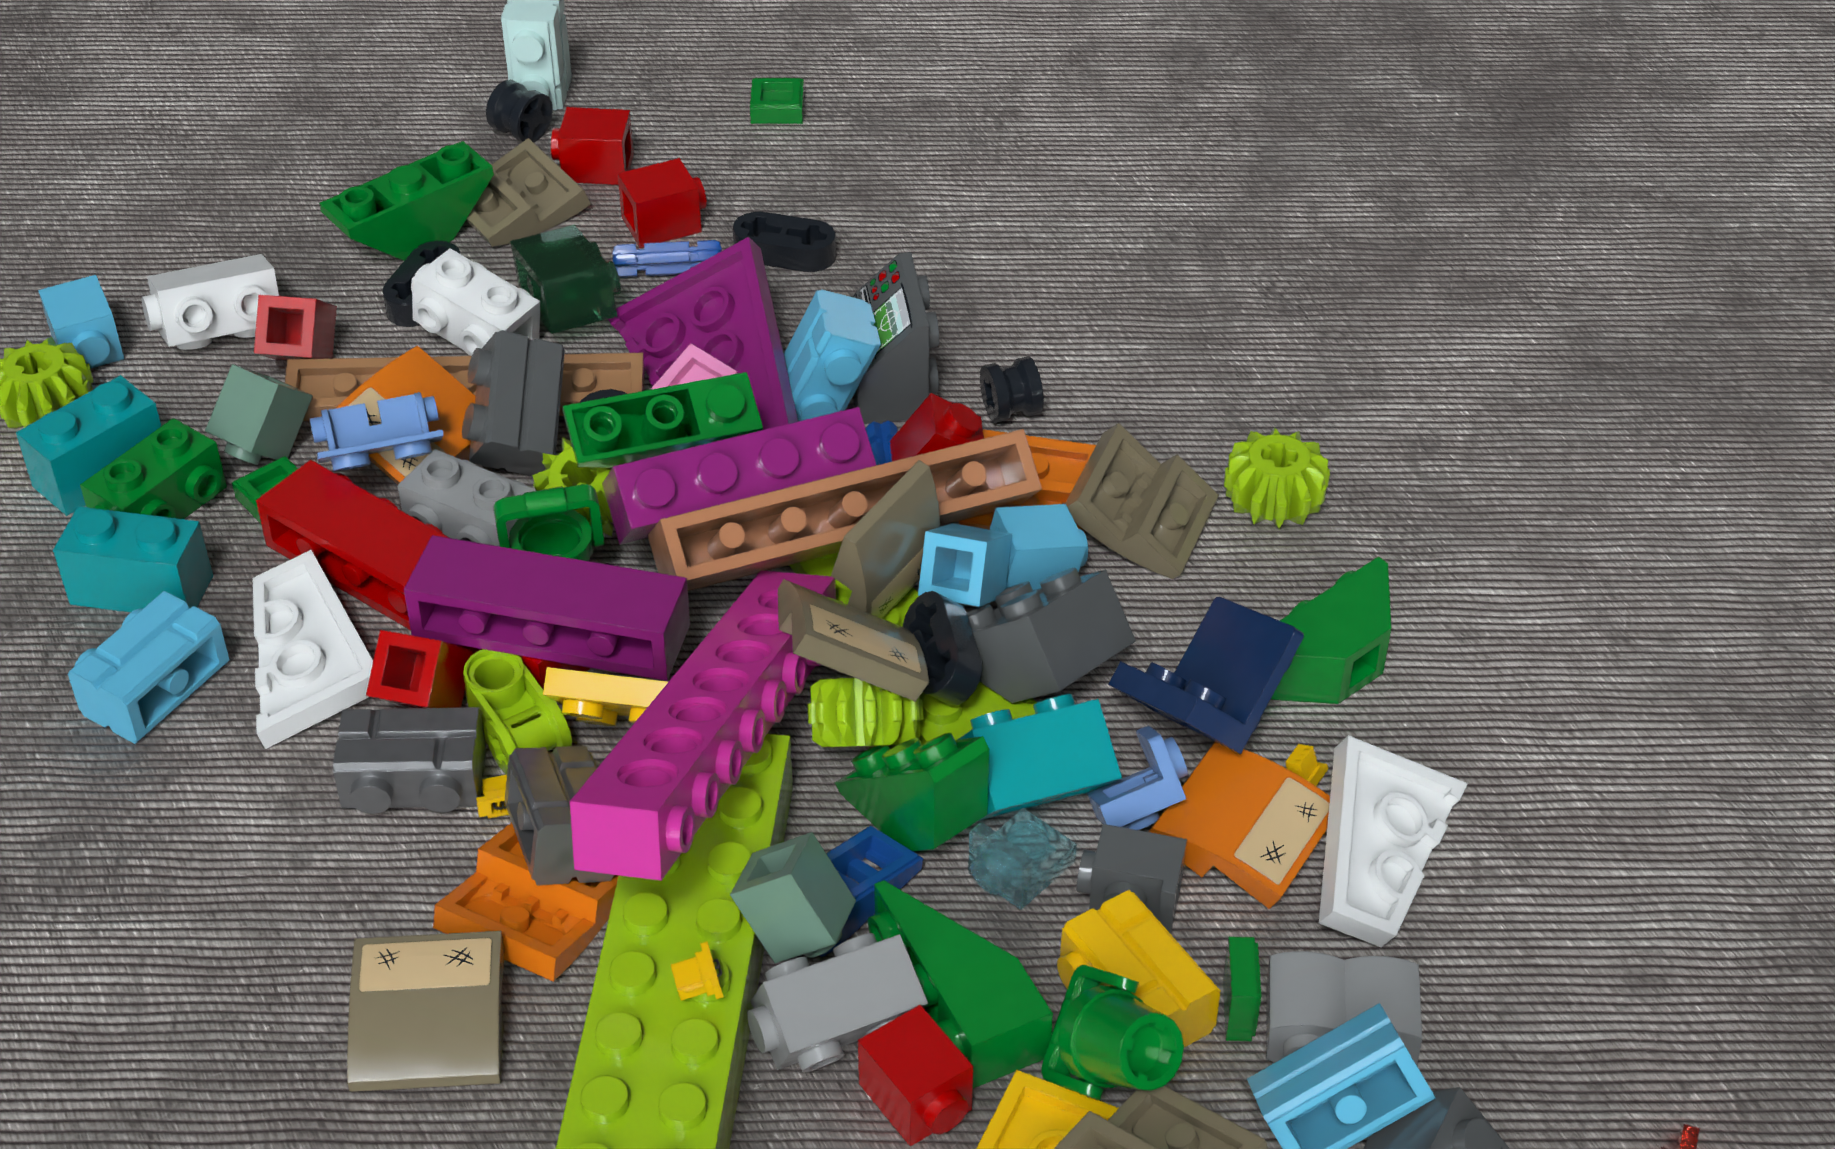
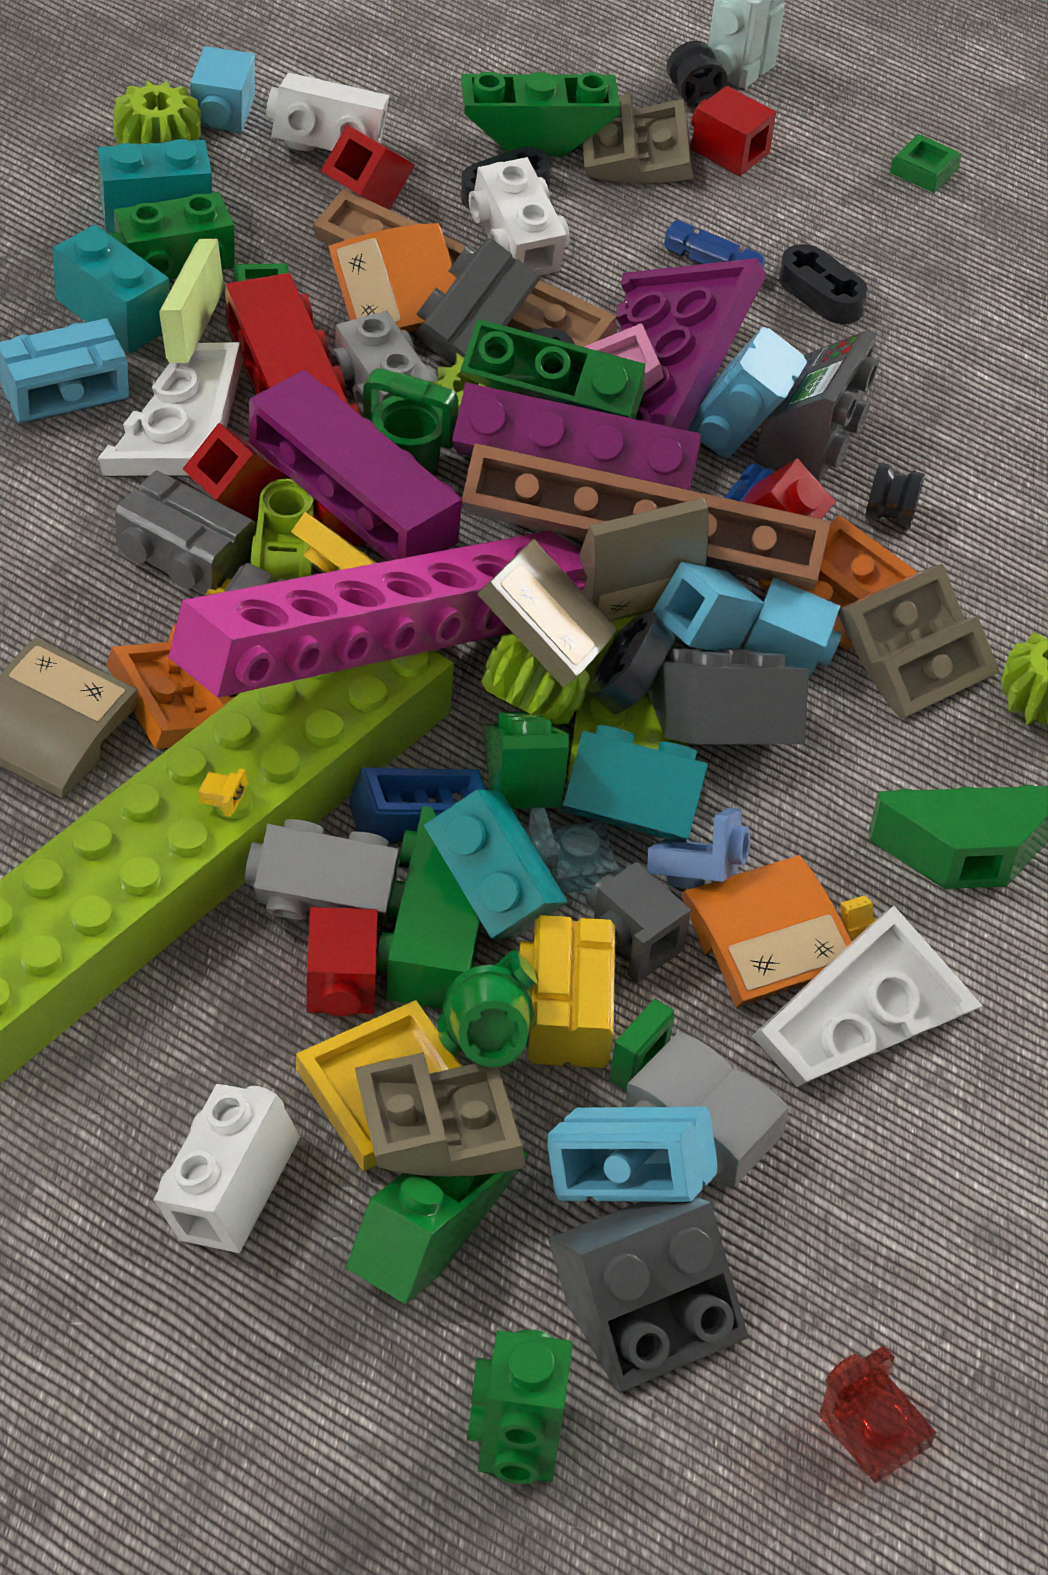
camera: 30 degrees right, 5 degrees up
(233, 533) = (192, 301): none -> yellowish green tile
(257, 415) = (286, 220): sand green brick -> none
(401, 429) = (326, 270): medium blue hinge -> none
(566, 277) = (608, 226): clear green brick -> none
(661, 202) = (745, 202): red brick -> none
(793, 898) = (344, 779): sand green brick -> none
(990, 899) = (495, 863): none -> teal brick
(1222, 675) = (821, 821): dark blue bracket -> none

